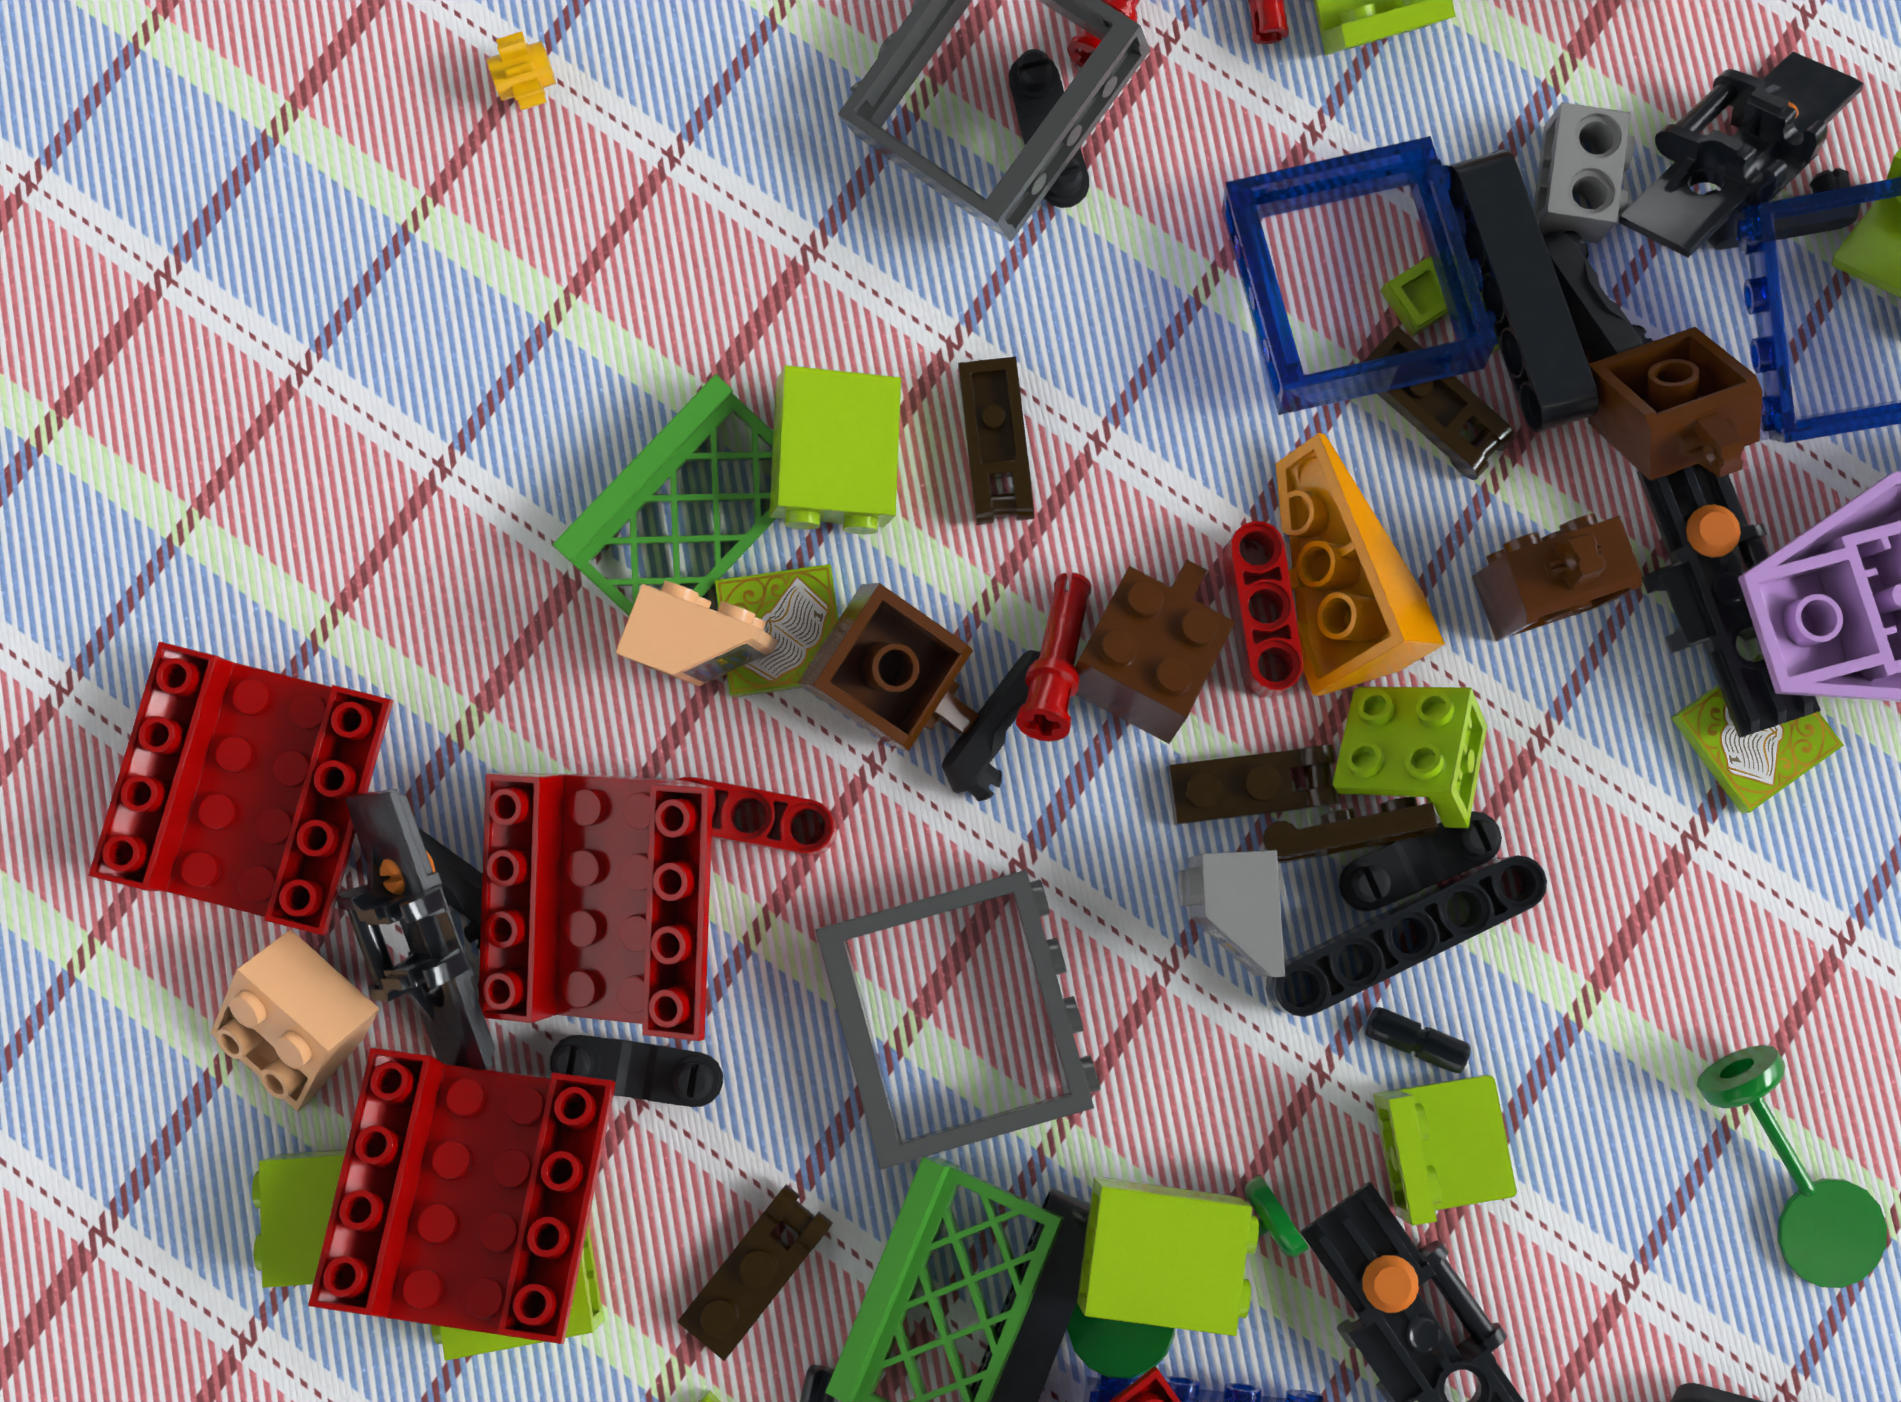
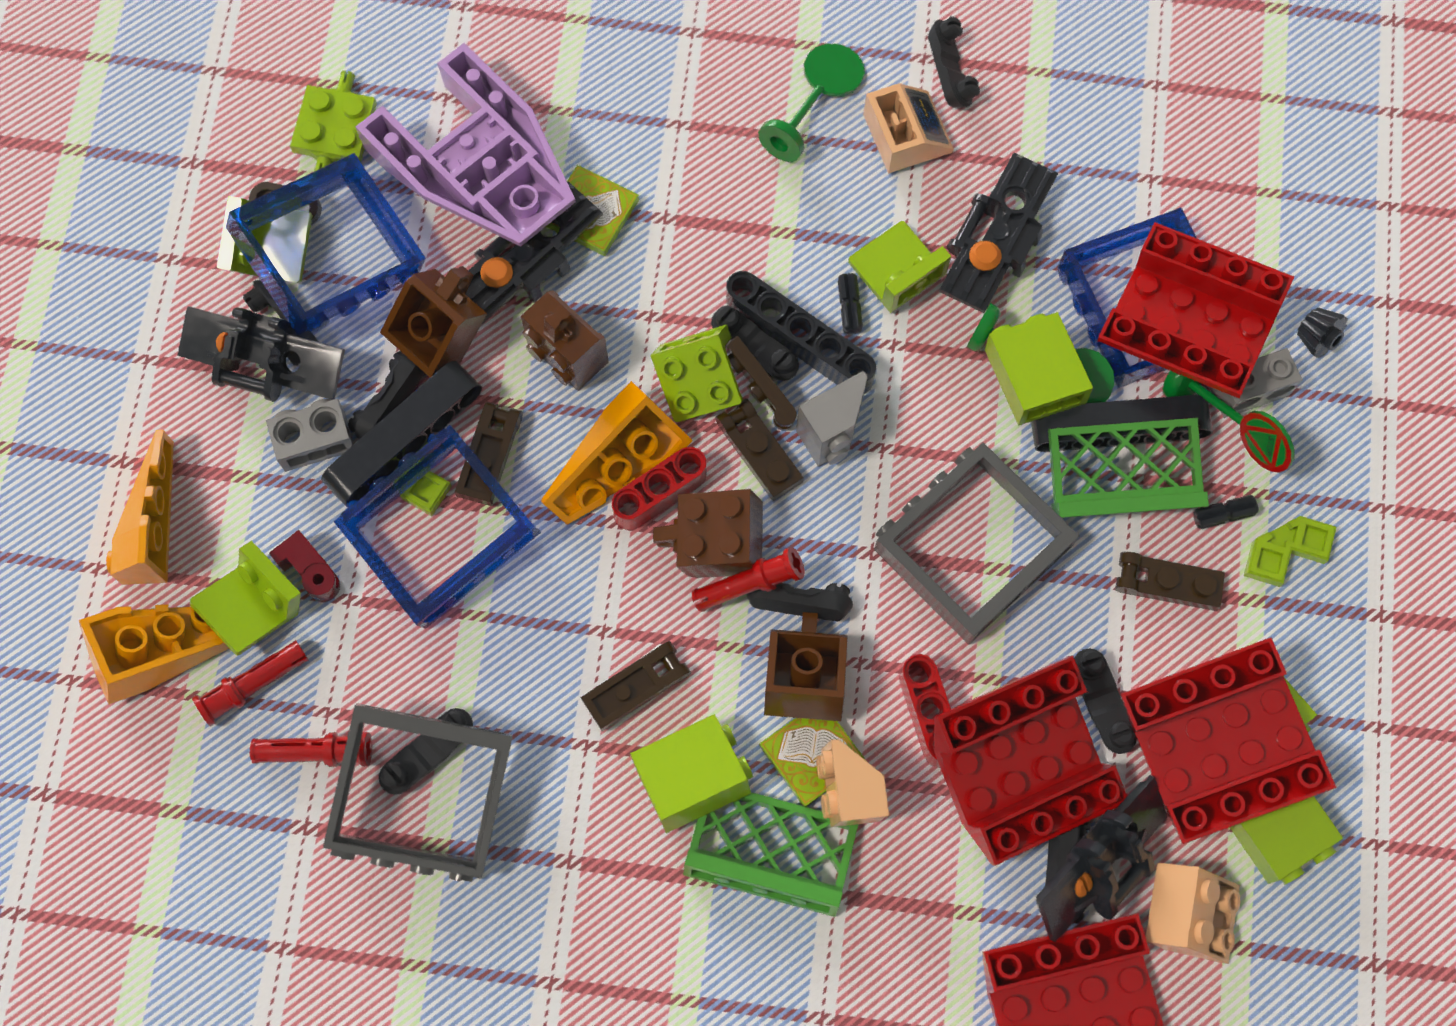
camera: 120 degrees left, 10 degrees down
(1387, 92) = (316, 574): none -> dark red leg
(1676, 1291) = (905, 126): none -> light nougat slope

